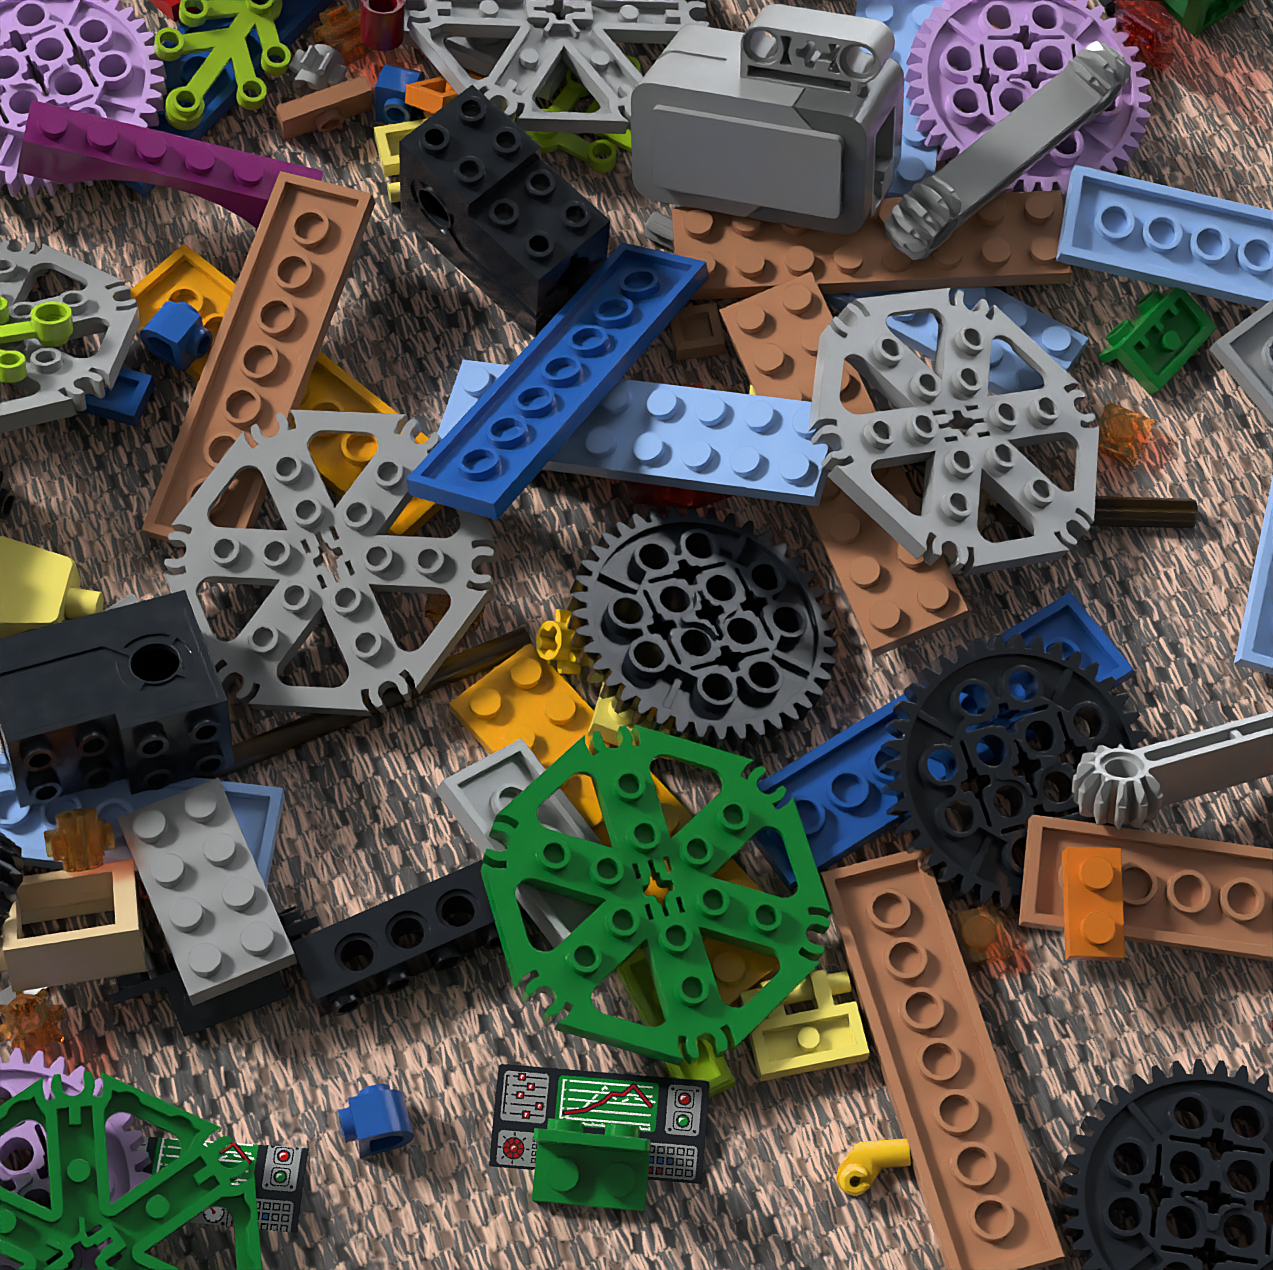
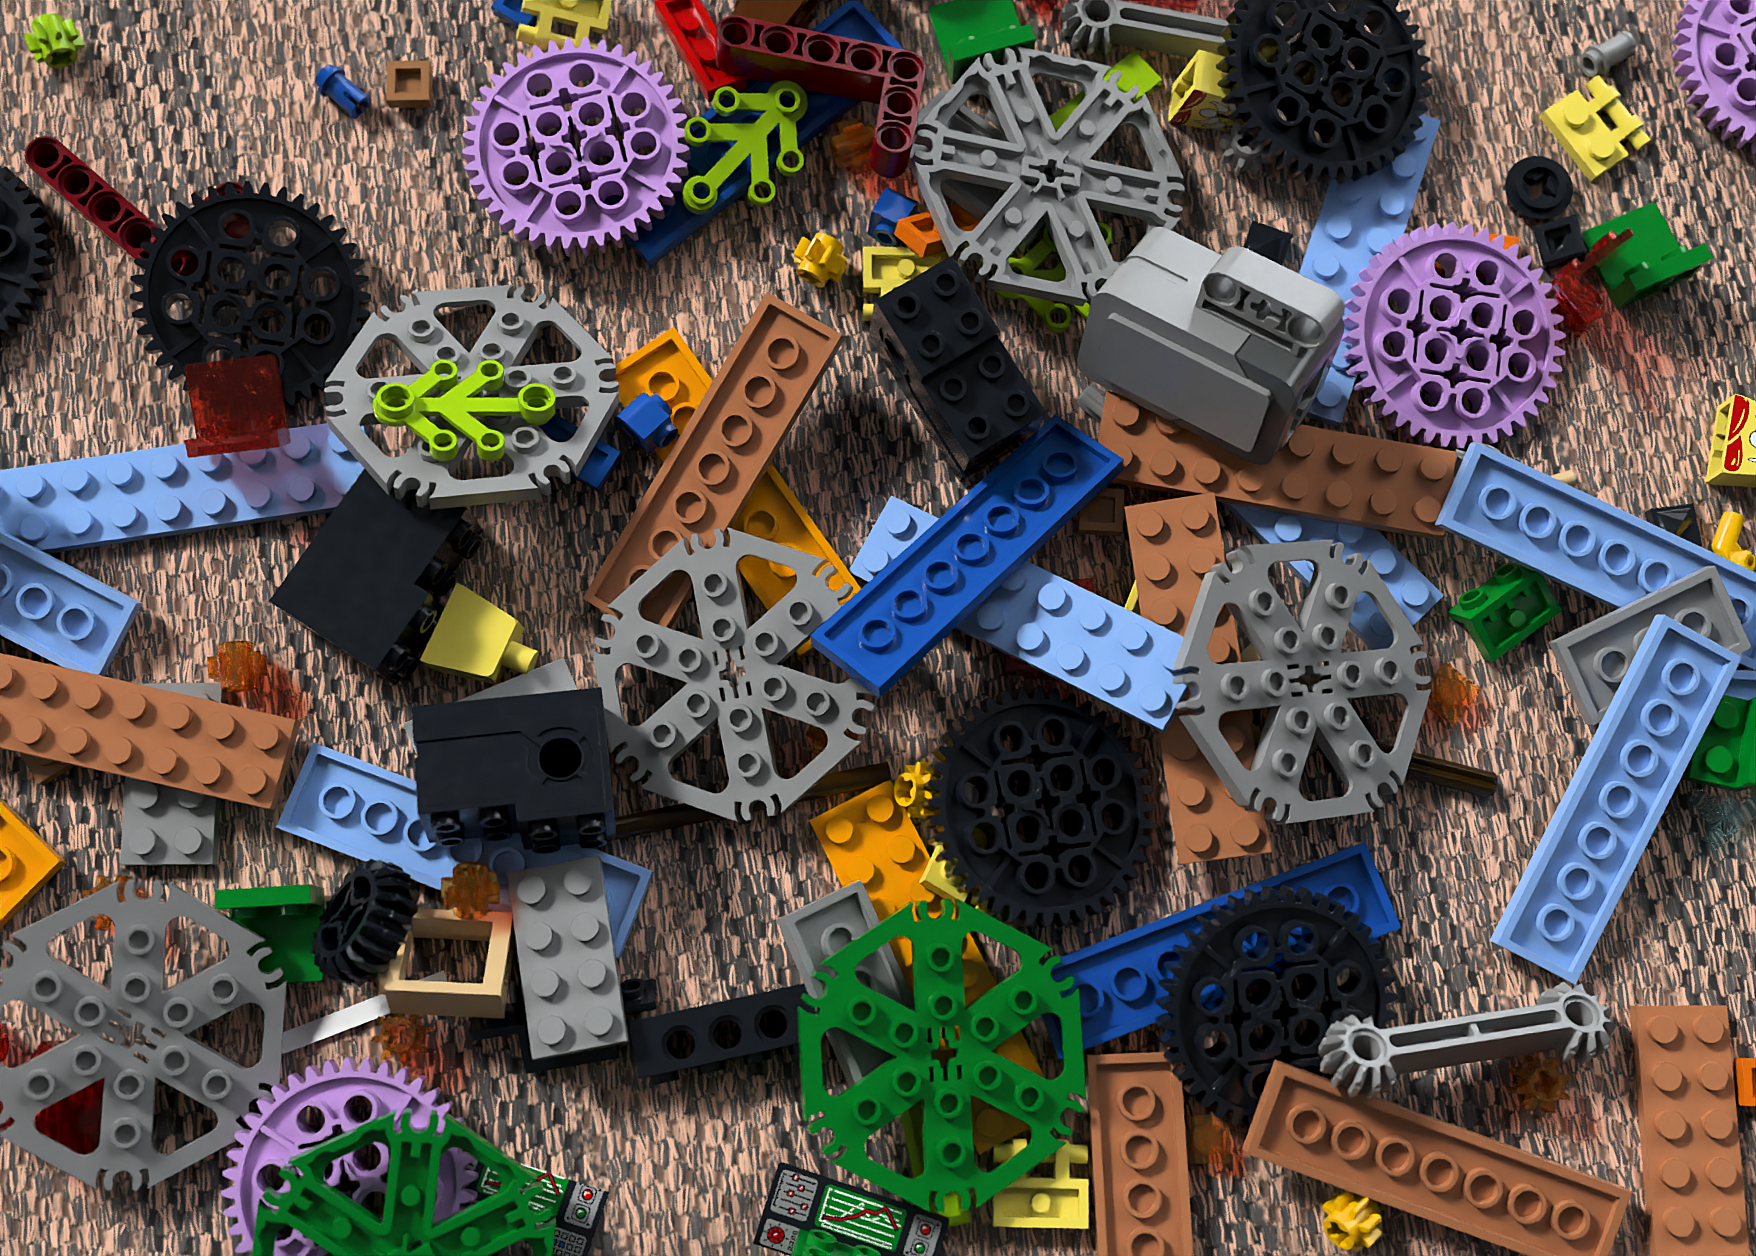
camera: 10 degrees right, 15 degrees up
(86, 147) = (616, 235): magenta arch -> none
(316, 69) = (825, 181): light grey gear -> none
(324, 108) = (823, 217): nougat plate -> none
(330, 148) = (820, 259): none -> yellow gear
(376, 1120) = (668, 1188): blue plate -> none
(1007, 151) = (1420, 412): light grey arm -> none
(1093, 904) = (1310, 1155): orange plate -> none
(1162, 977) = (1351, 1220): none -> yellow gear

